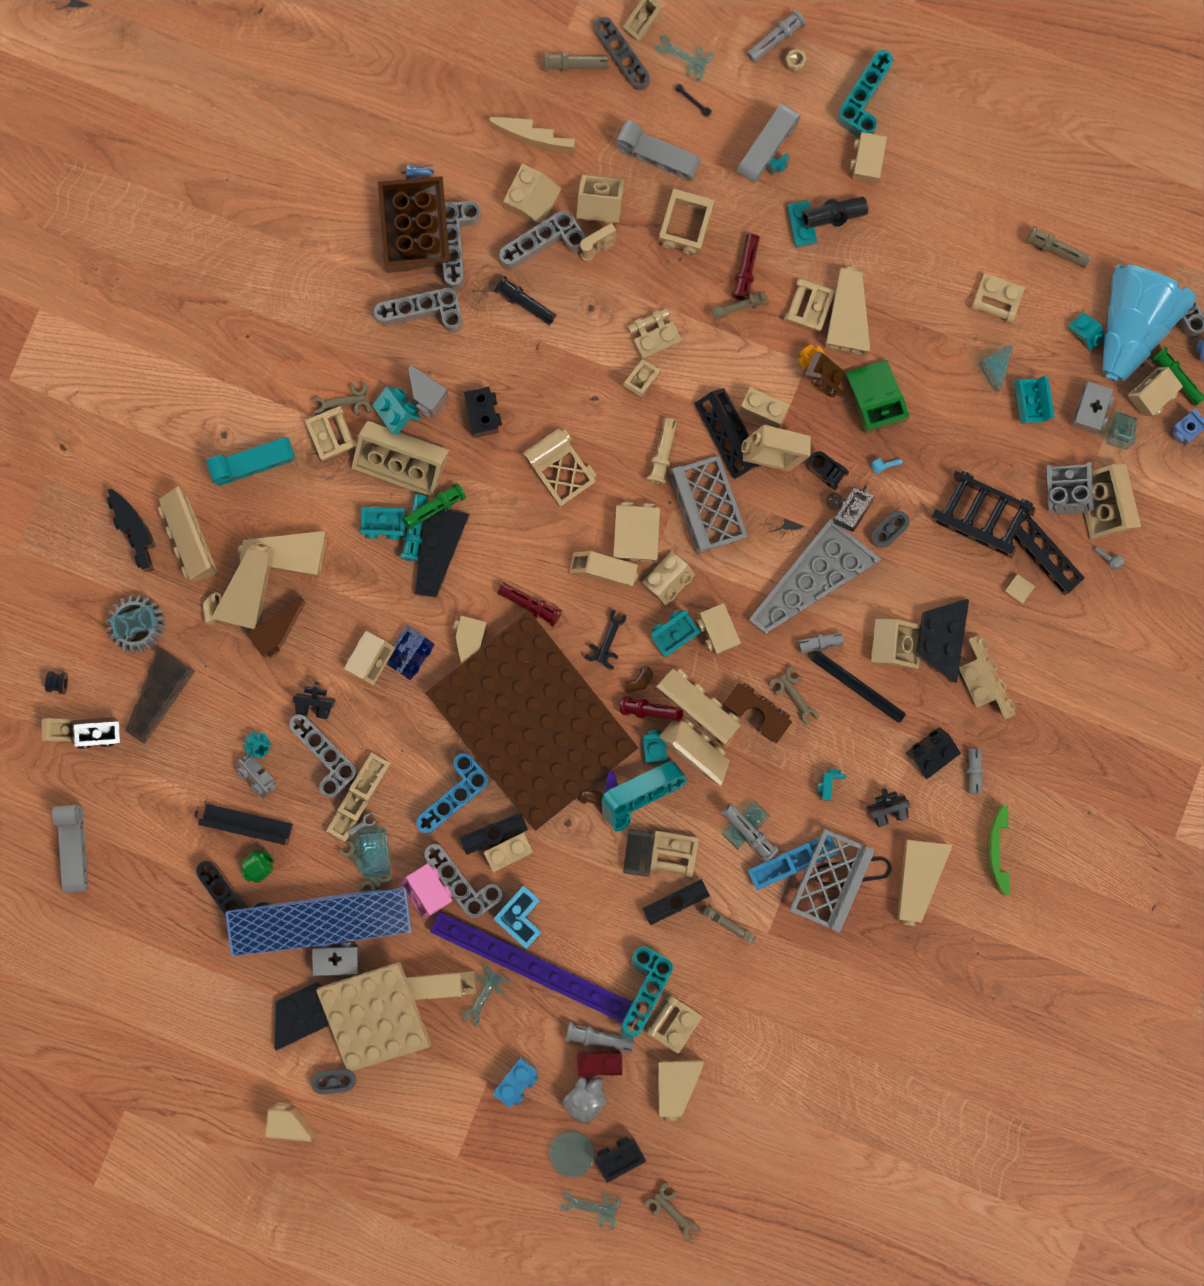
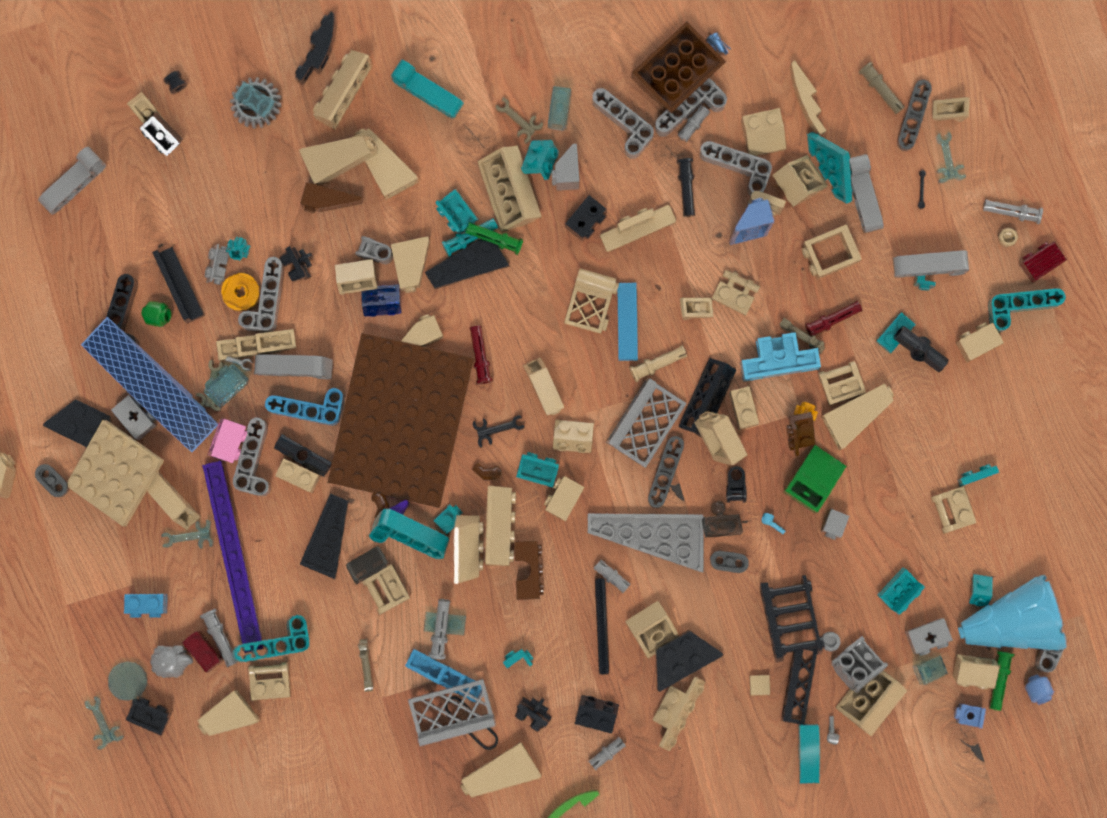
camera: 55 degrees right, 0 degrees up
(162, 687) = (221, 155): clear smoke wing -> none
(210, 606) = (307, 141): tan arm -> none
(287, 769) = (251, 290): none -> light orange plate
(324, 436) = (484, 125): tan plate -> none
(357, 624) = (371, 249): none -> light grey piece
(363, 356) = (559, 108): none -> clear light blue brick
(395, 600) = (410, 262): none -> tan slope
(405, 778) = (293, 365): none -> light grey beam
(473, 250) = (693, 123): none -> light grey pin
(514, 918) = (254, 516): medium azure brick -> none
(527, 373) = (637, 227): none -> tan bracket
(591, 878) = (326, 542): none -> black wing
(605, 449) = (627, 322): none -> dark azure slope
(607, 265) = (754, 223): none -> medium blue slope
(611, 157) = (833, 165): none -> teal plate
(636, 532) = (586, 389): tan brick -> none
(643, 708) = (467, 488): dark red pin -> none
(661, 1200) = (143, 767): dark tan bar -> none
(690, 895) = (341, 611): black piece -> none
(744, 341) = (779, 358): none -> medium azure piece
(763, 523) = (663, 471): none -> dark grey beam
(786, 682) = (565, 573): dark tan bar -> none
(841, 47) = (1043, 261): none -> dark red brick
(930, 410) = (834, 524): none -> light grey brick
(980, 261) = (985, 471): none -> teal plate
(996, 366) = (903, 545): clear light blue slope -> none
(1031, 494) = (831, 641): none -> light grey tile
(1047, 245) = (1018, 514): dark tan pin -> none
(1113, 593) = (809, 753): none -> teal slope

